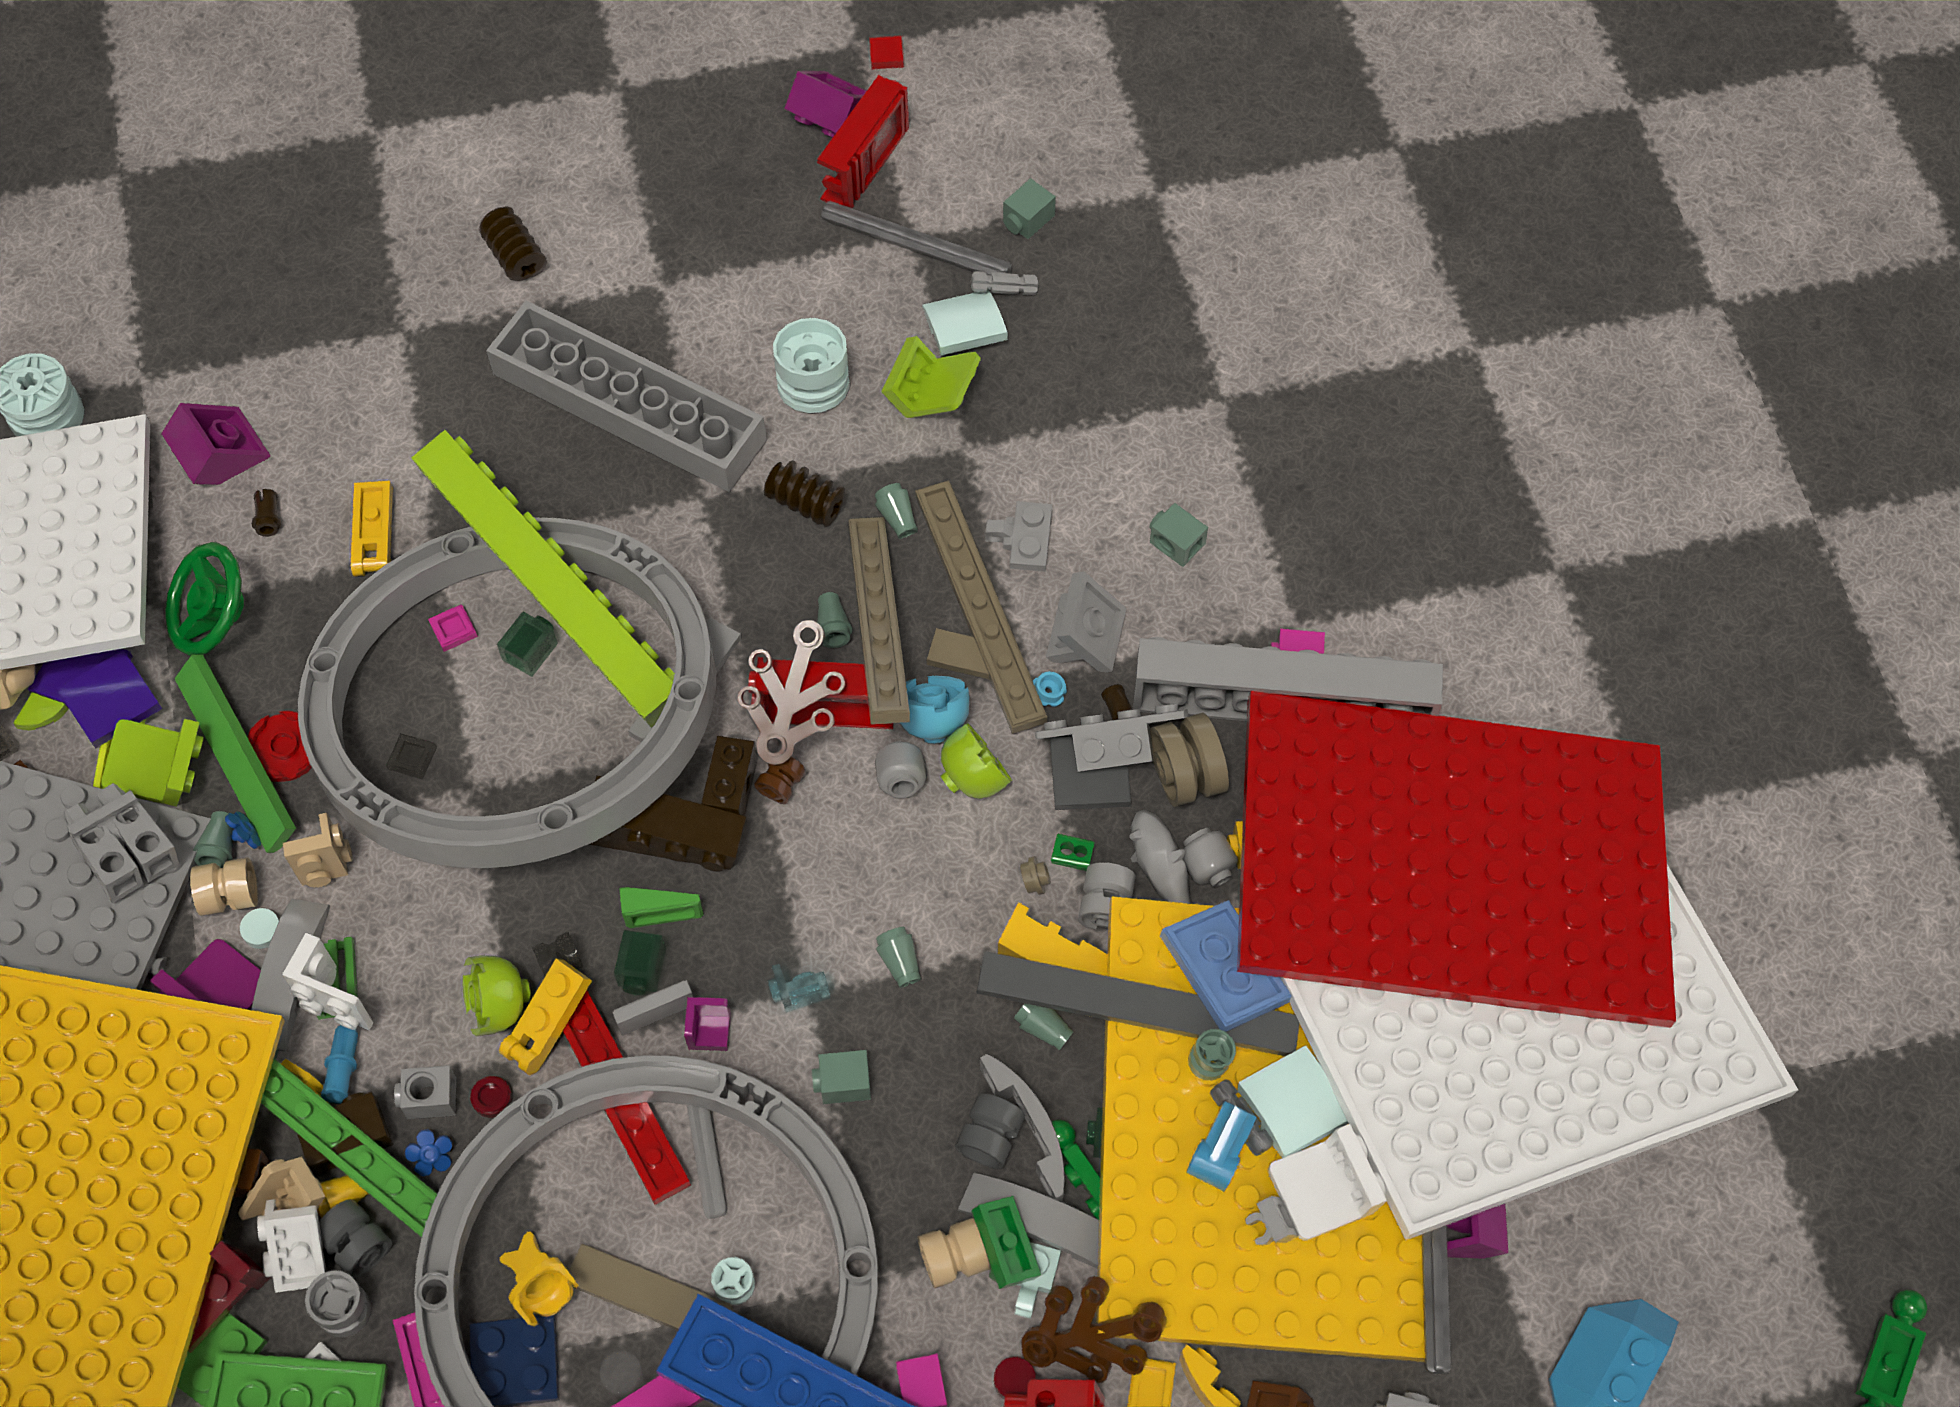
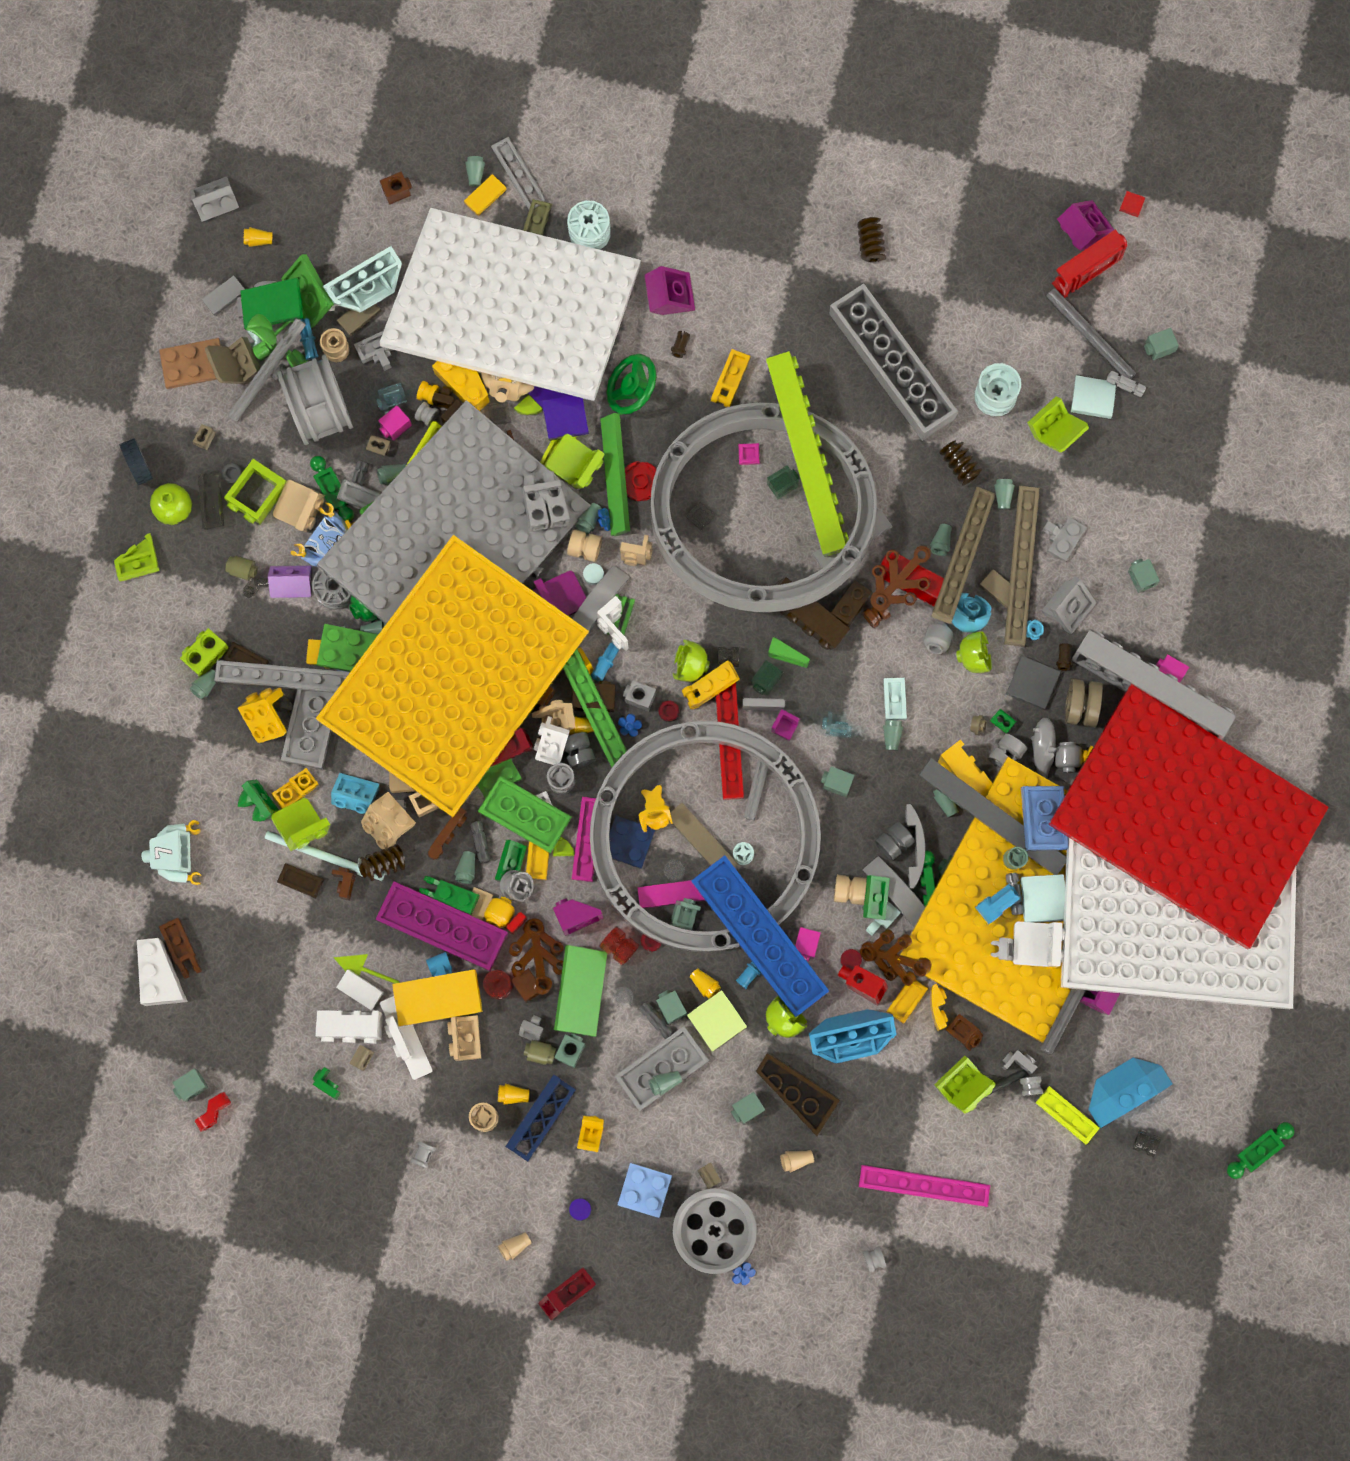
camera: 30 degrees right, 15 degrees up
(875, 897) = (894, 698): none -> light aqua plate
(1112, 742) = (1051, 674): light grey bracket -> none

